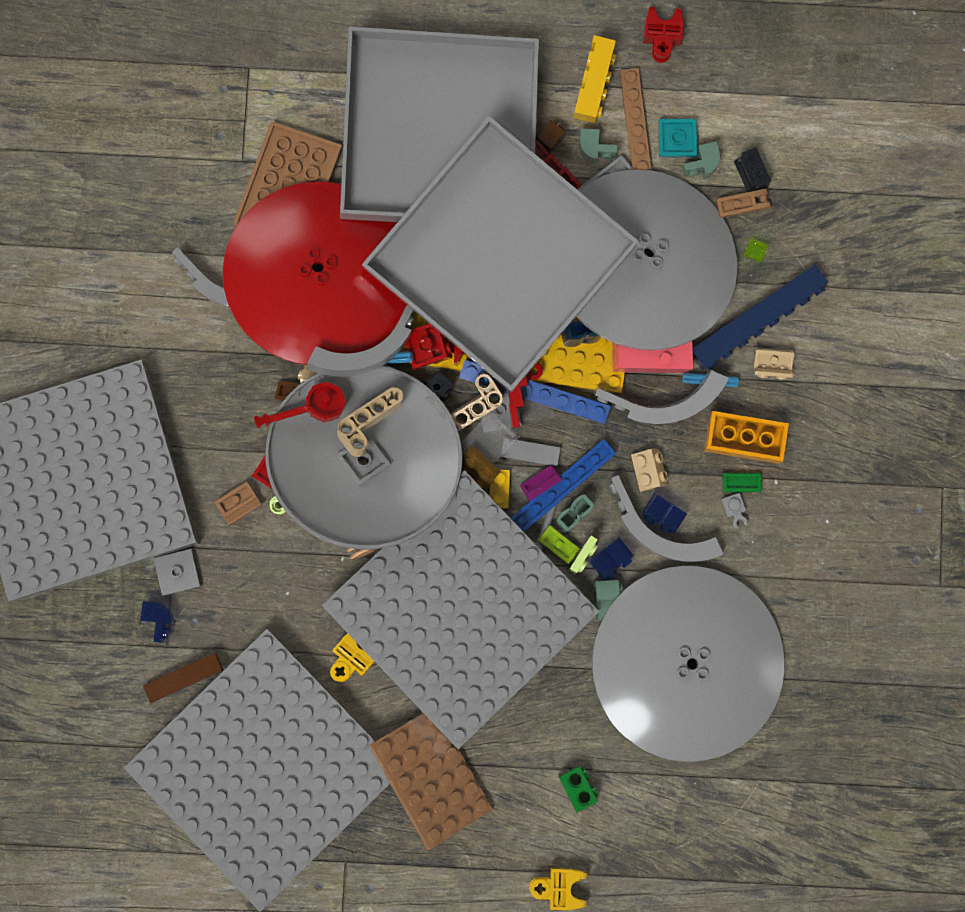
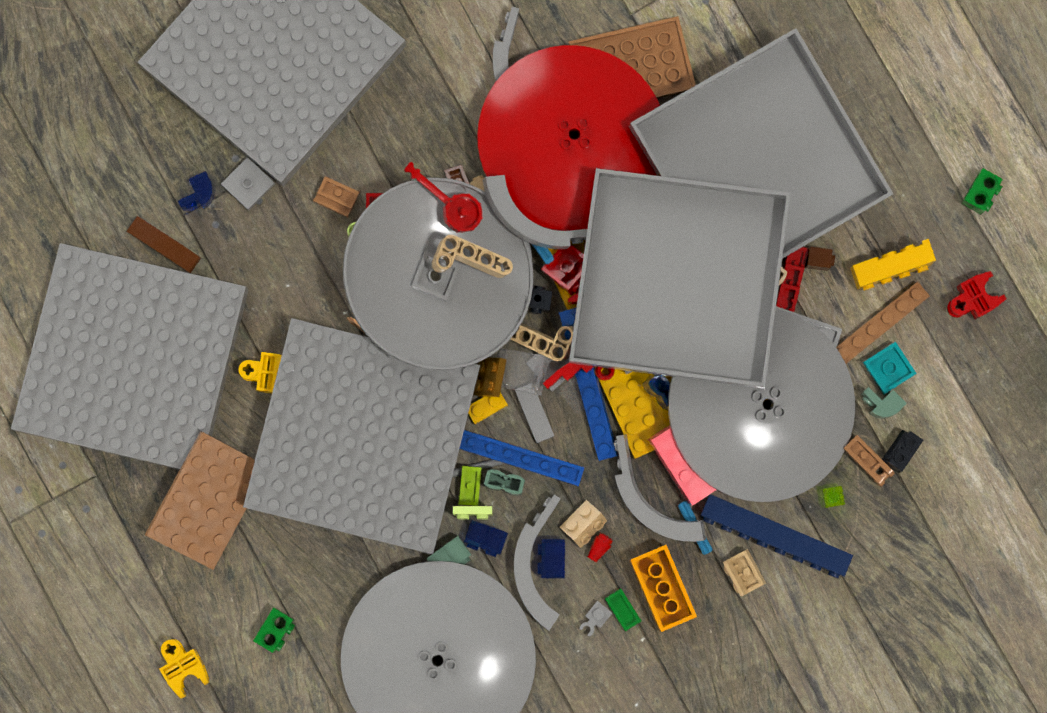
camera: 60 degrees right, 0 degrees up
(540, 482) = (513, 437): magenta tile -> none
(591, 149) = (832, 298): sand green brick -> none
(678, 468) = (599, 547): none -> red cone

